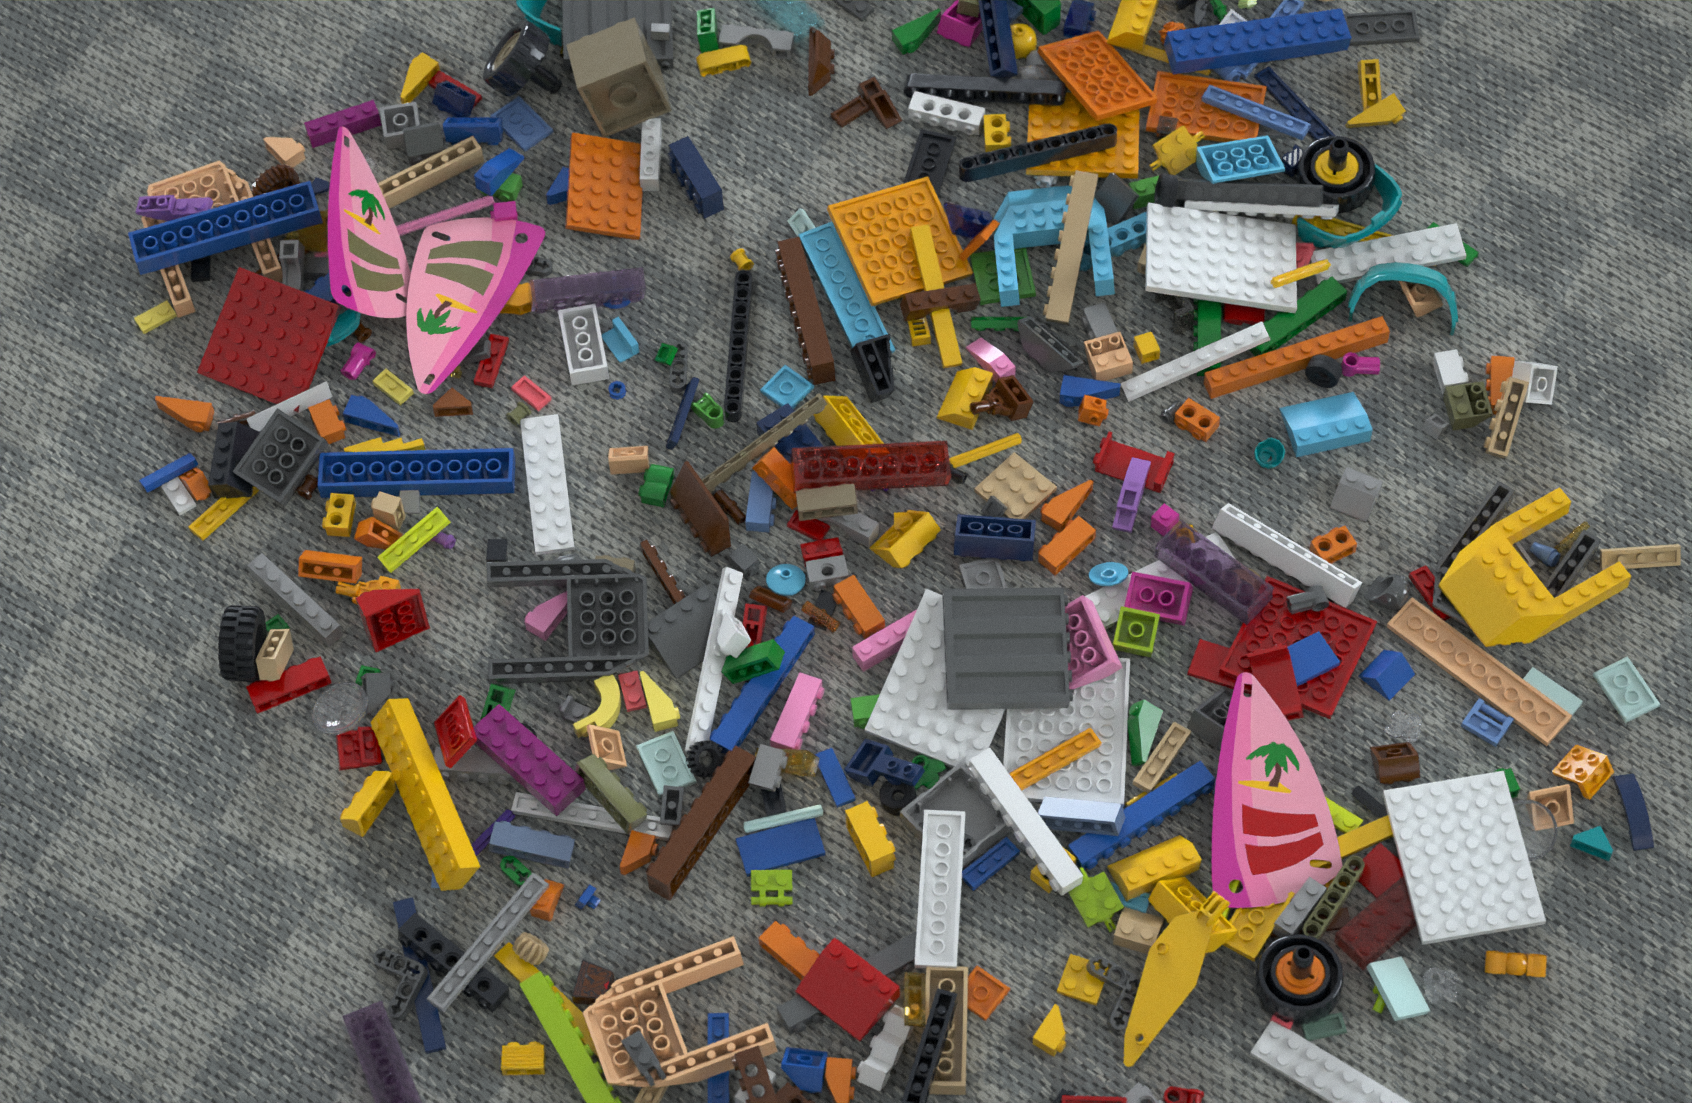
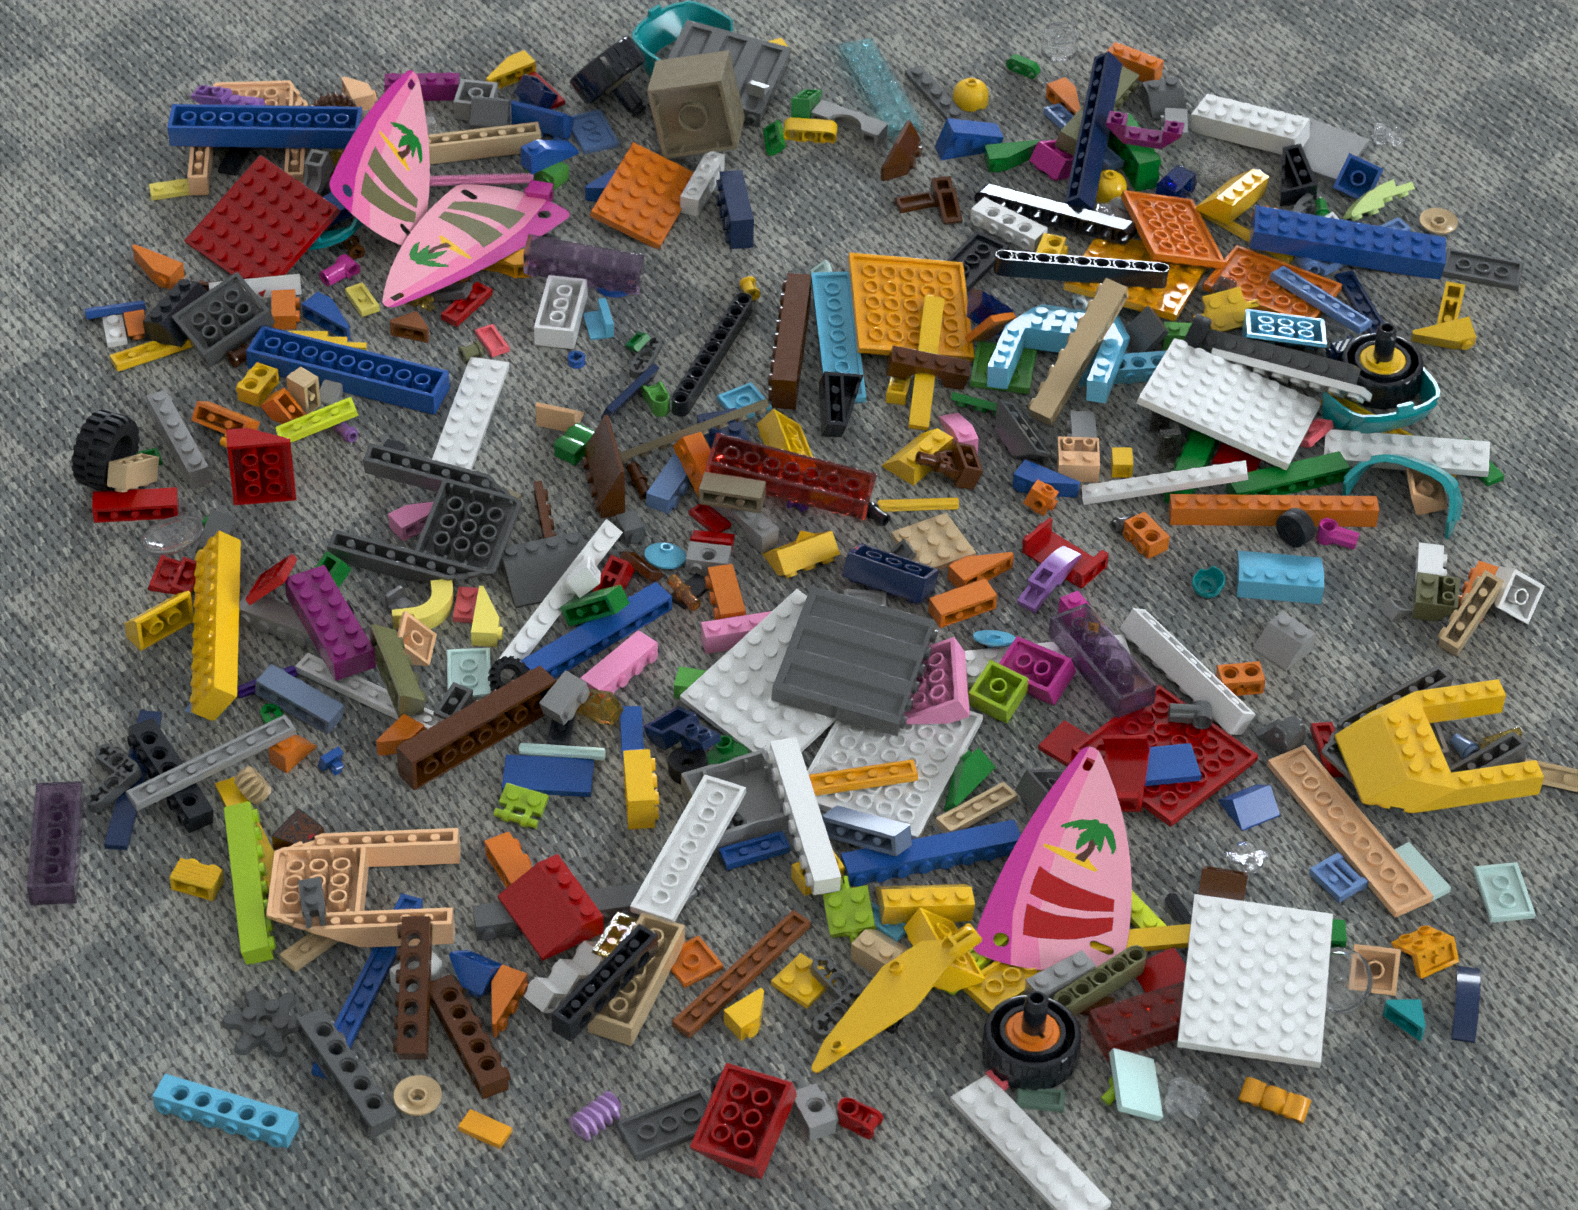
camera: 15 degrees right, 15 degrees down
(694, 80) = (774, 138): none -> green plate
(871, 26) = (966, 138): none -> blue wedge
(1029, 992) = (741, 974): none -> dark orange plate
(1300, 273) = (1305, 436): yellow axle -> none

